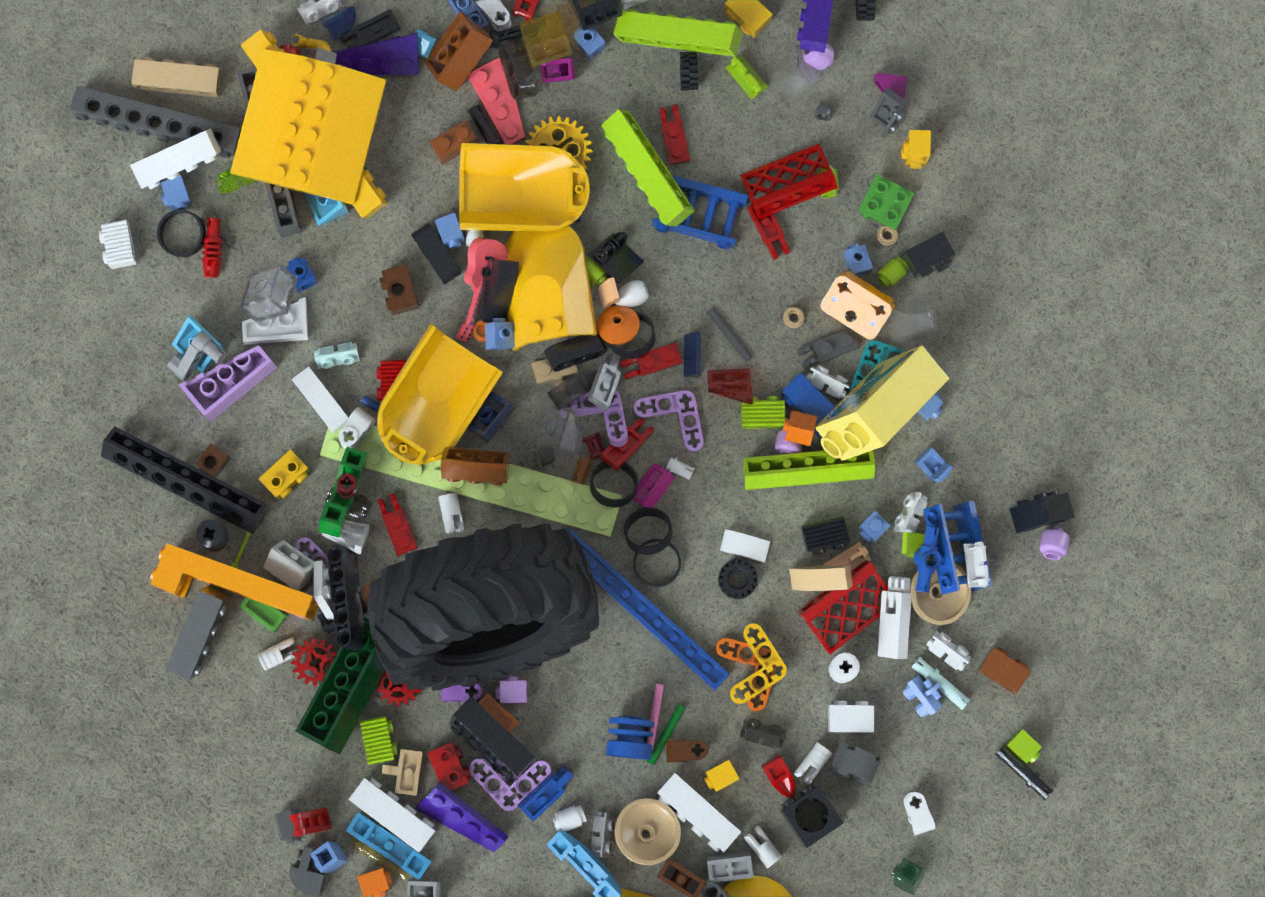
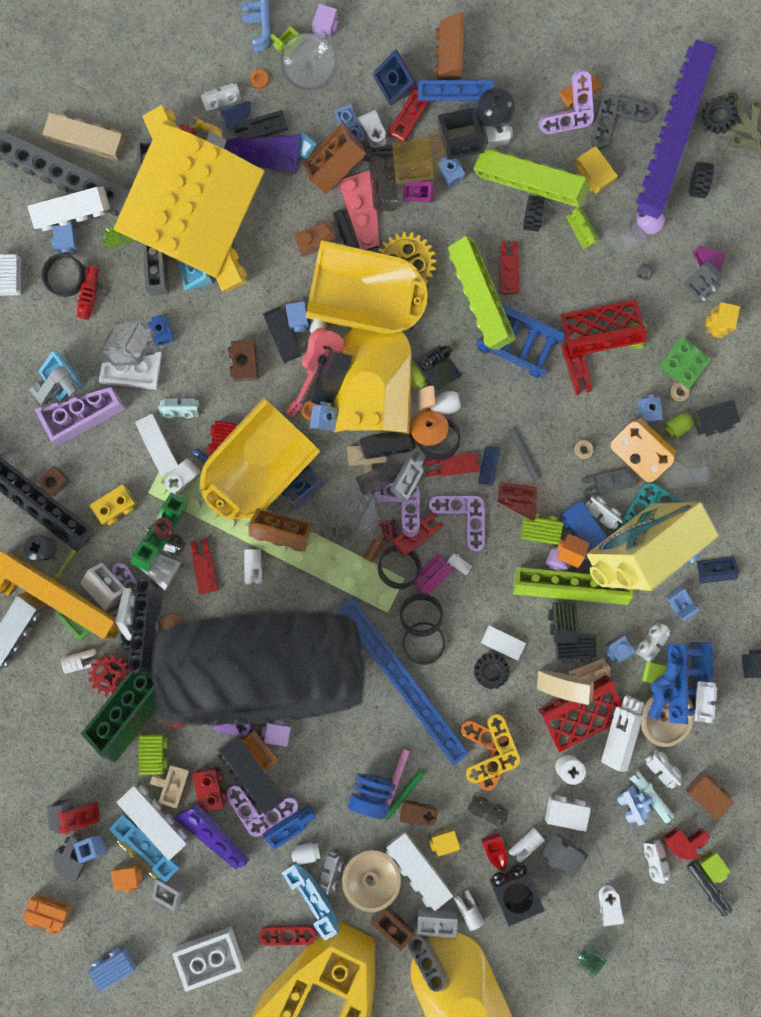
camera: 10 degrees right, 5 degrees up
(806, 509) = (564, 622): none -> black brick
(963, 763) = (658, 869): none -> white hinge
(966, 422) = (717, 570): none -> dark blue slope
(985, 732) = (683, 846): none -> red brick

